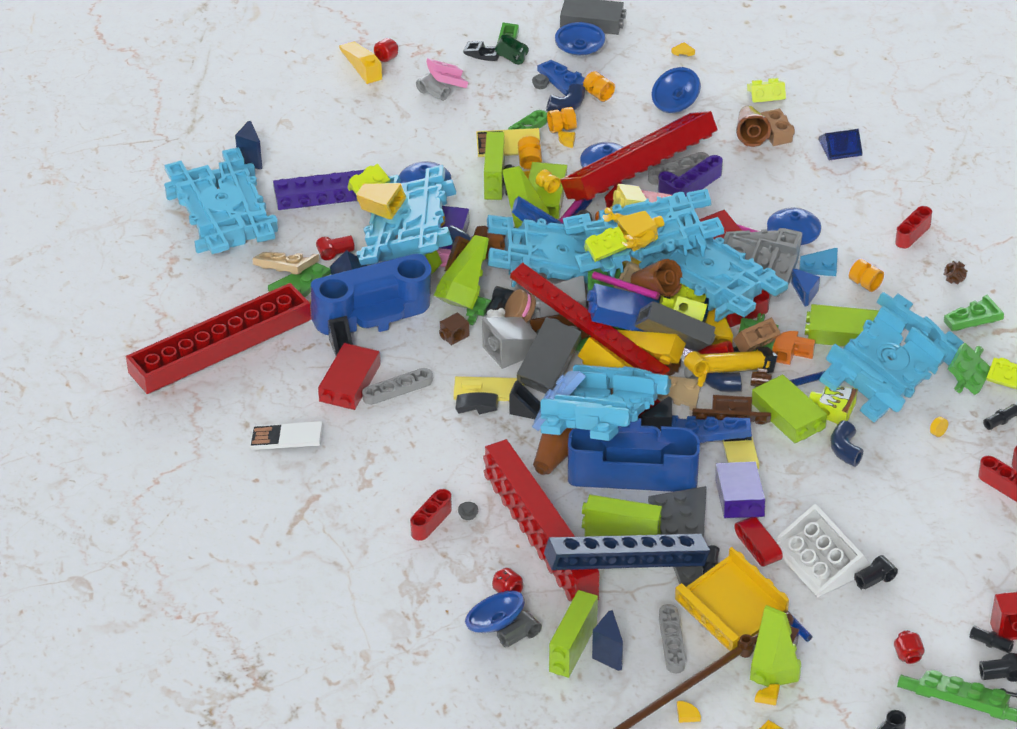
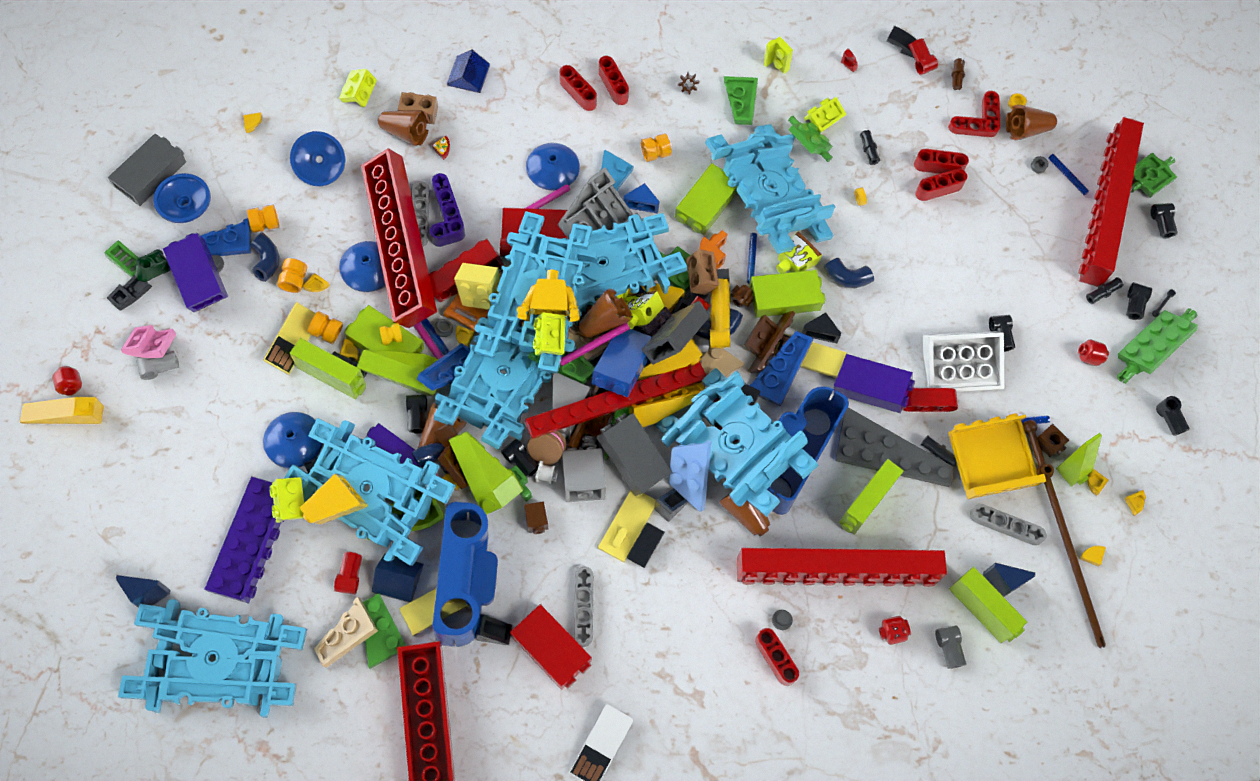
camera: 70 degrees left, 25 degrees up
(495, 612) = (918, 663): blue dish -> none
(521, 70) = (195, 272): none -> dark purple brick
(536, 119) = (269, 302): bright green beam -> none
(626, 551) = (931, 484): dark blue brick -> none
(753, 156) = (442, 147): none -> tile
(772, 443) = (822, 329): none -> black slope
(884, 209) = (578, 88): none -> red beam

